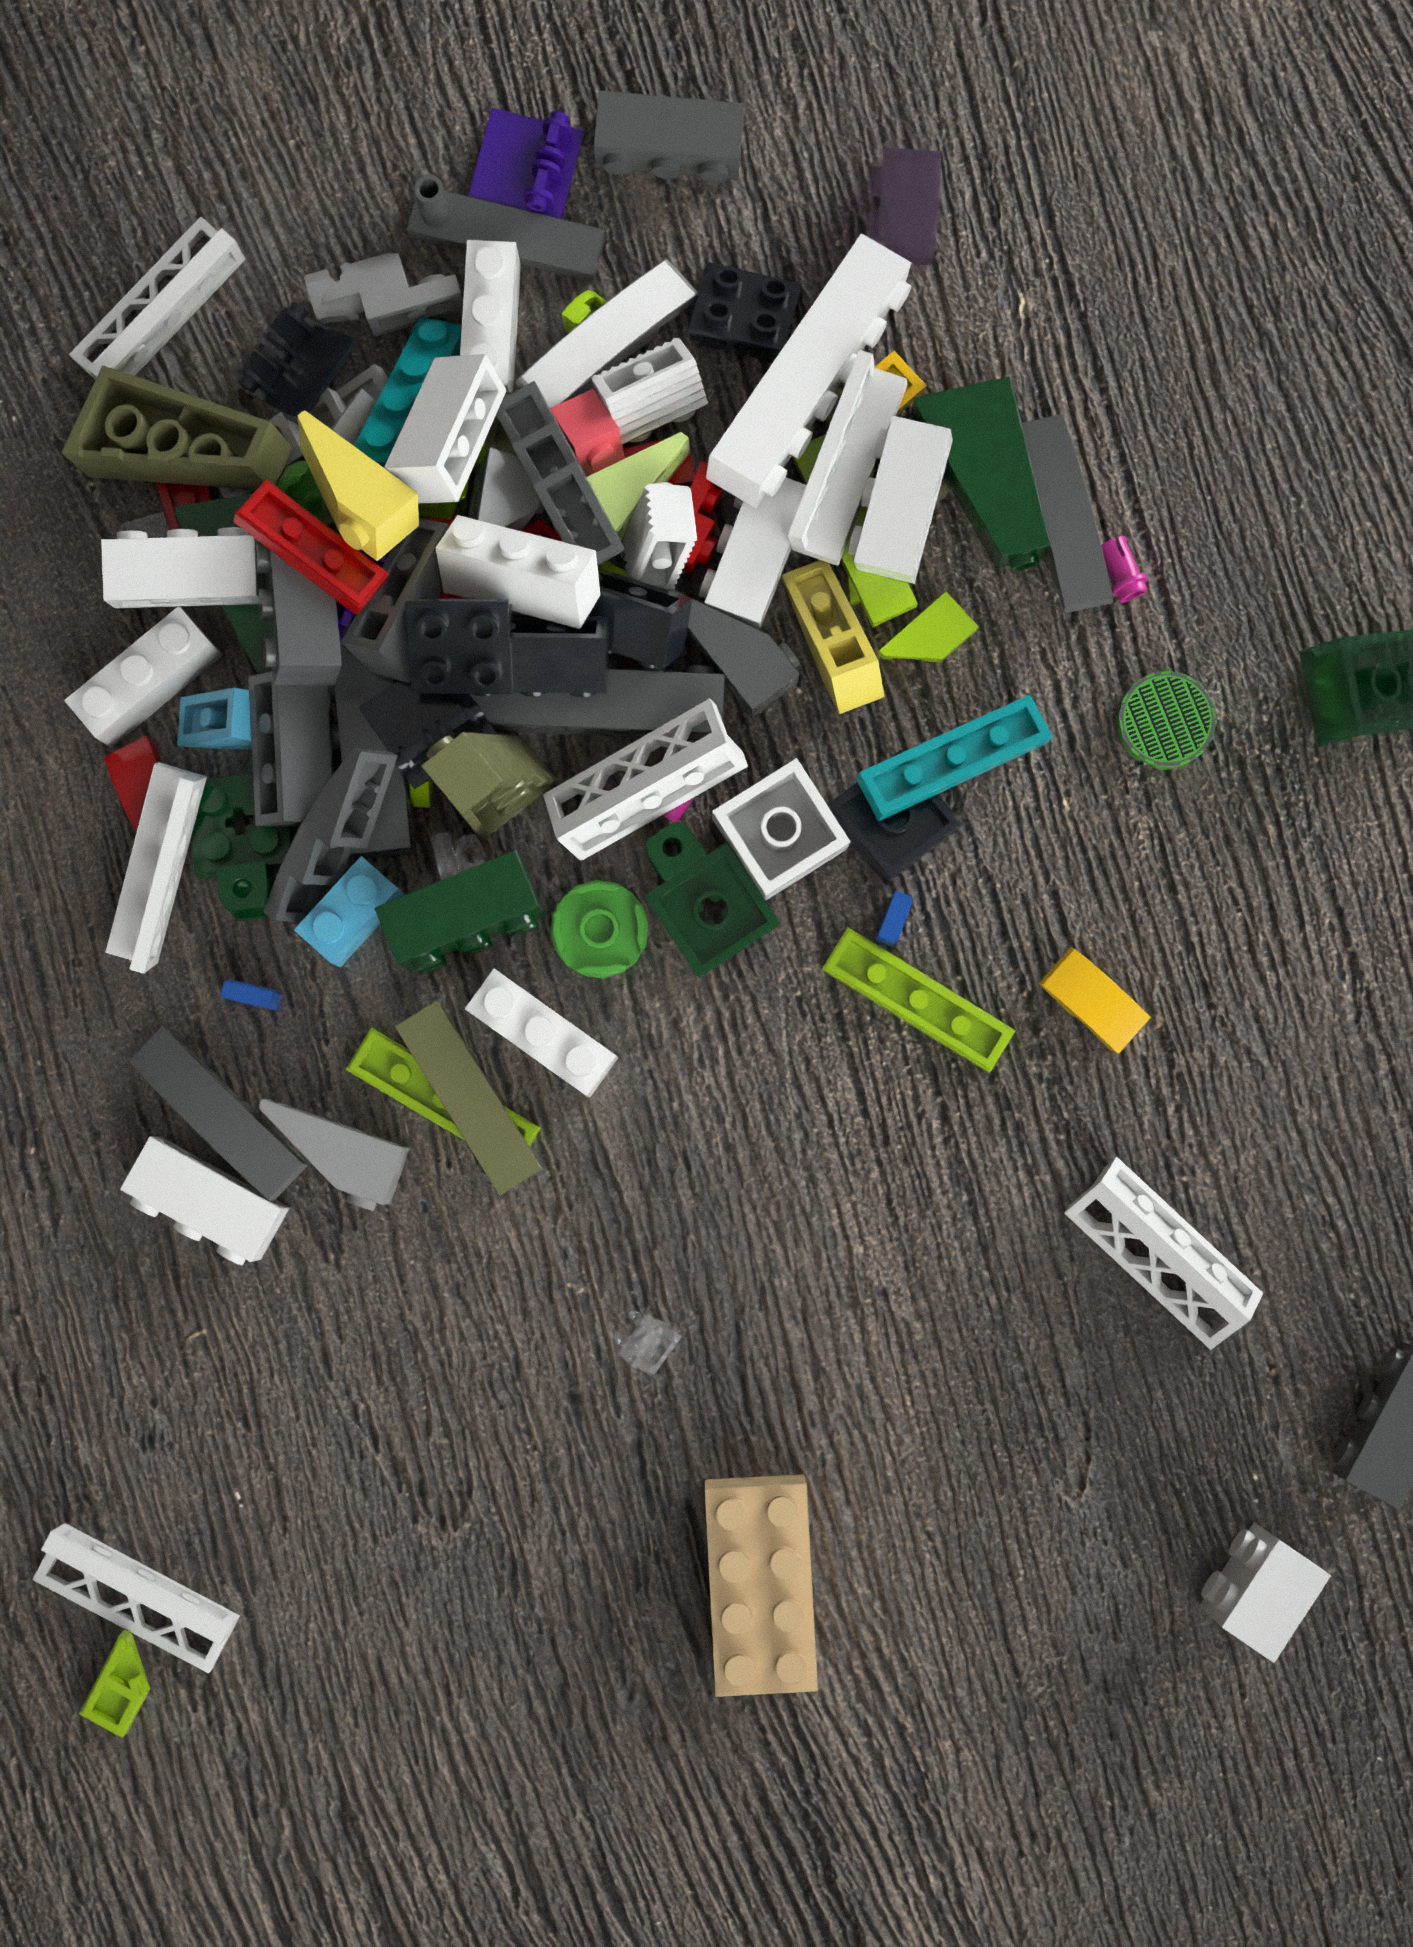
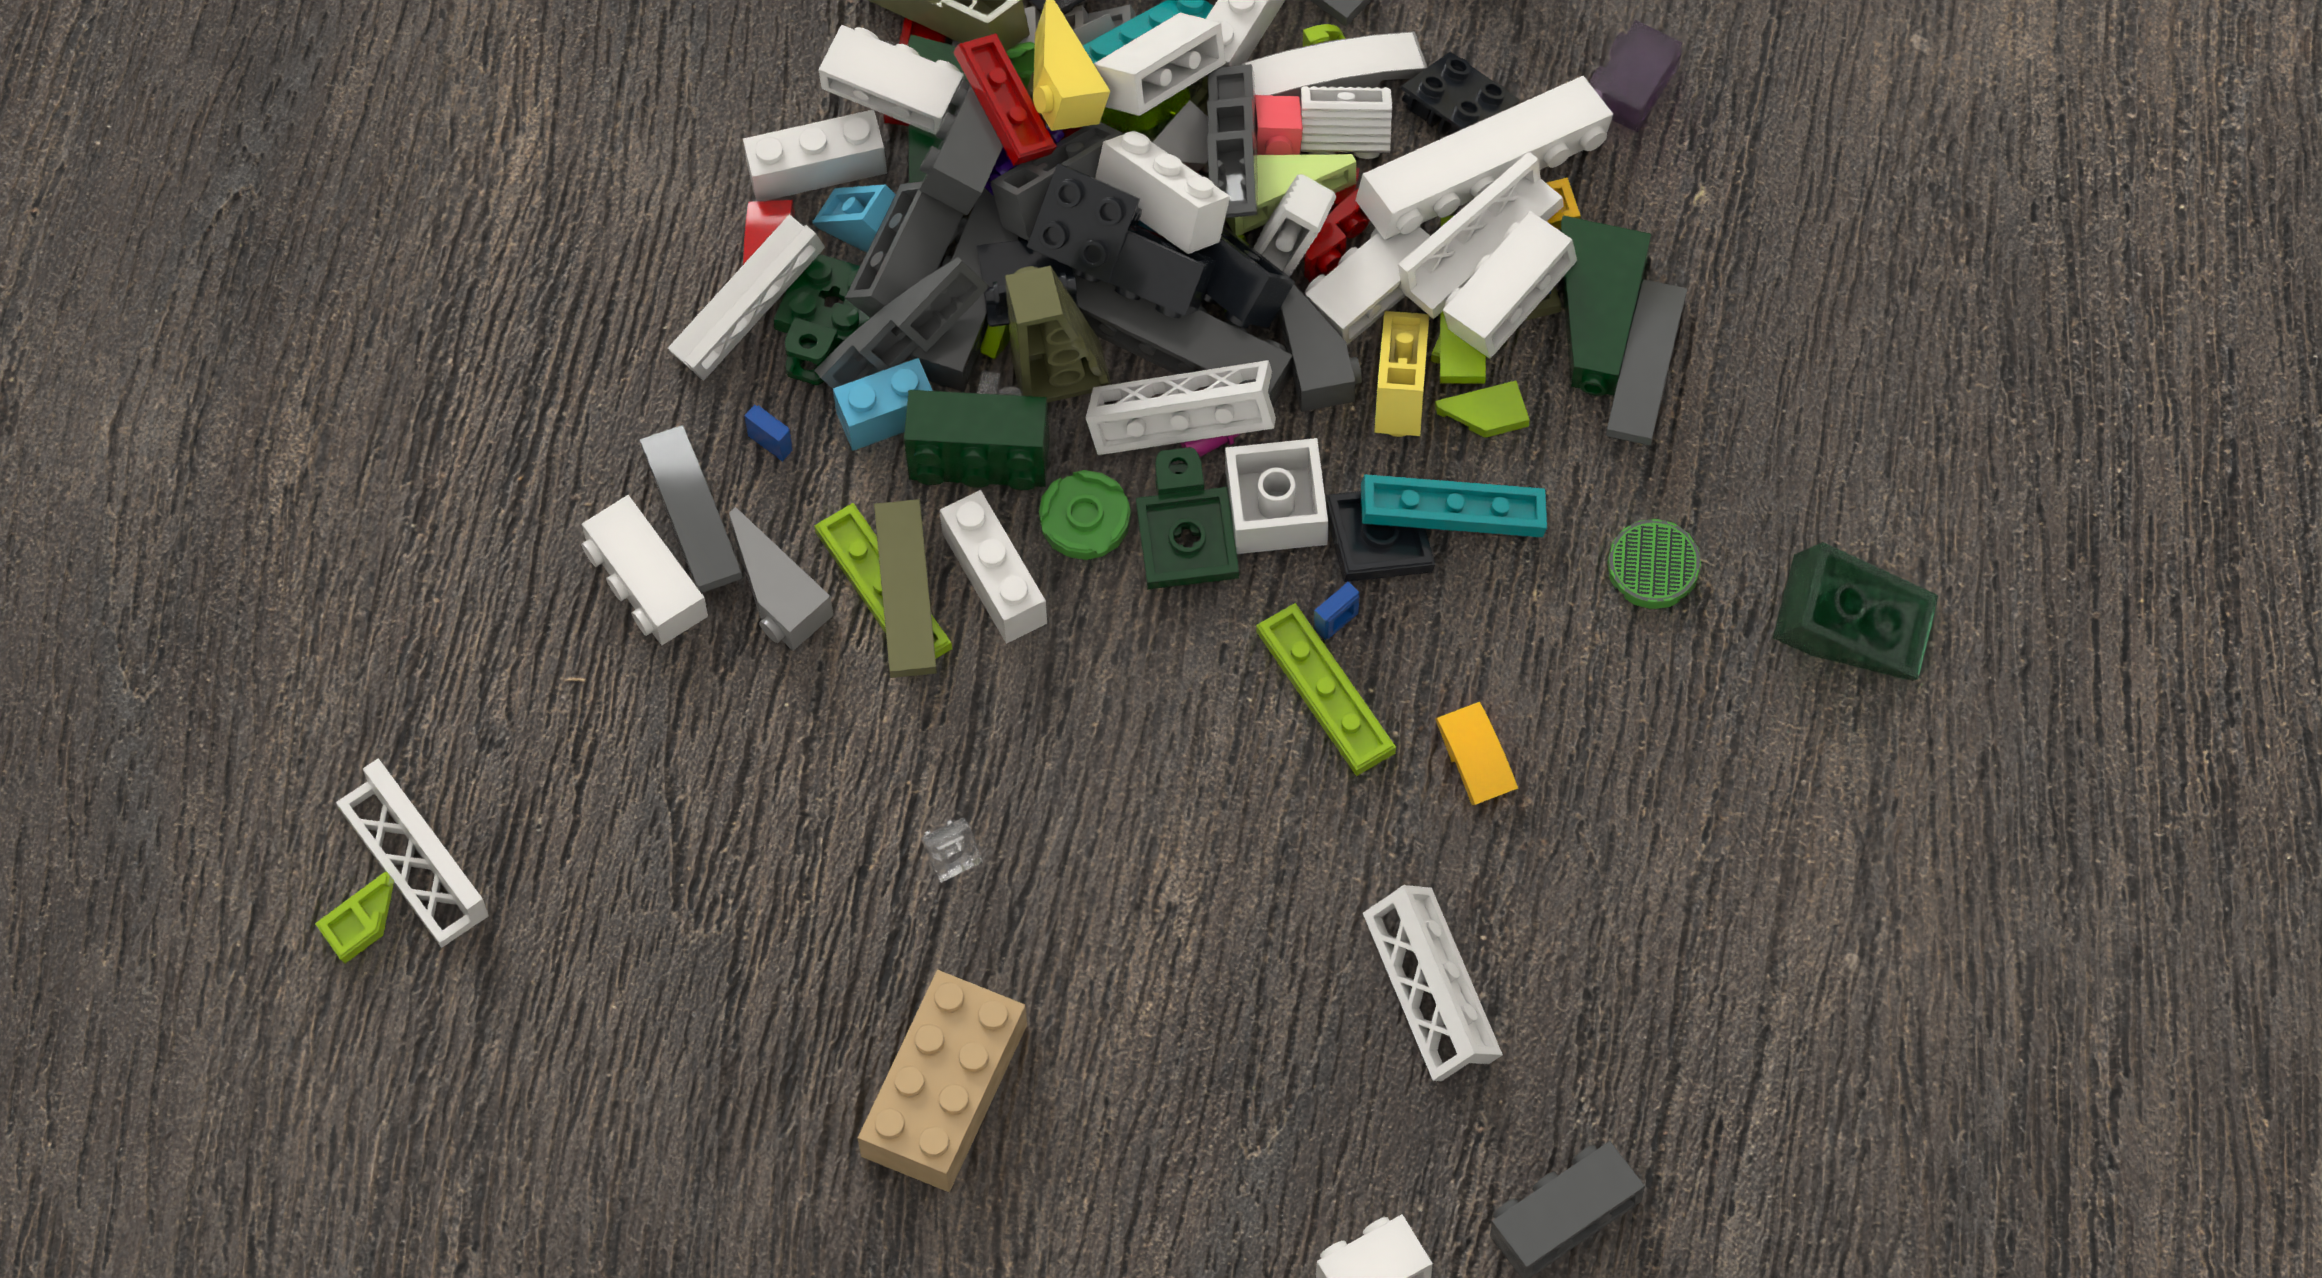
camera: 25 degrees right, 20 degrees down
(1123, 571) = (1675, 436): dark pink pin -> none

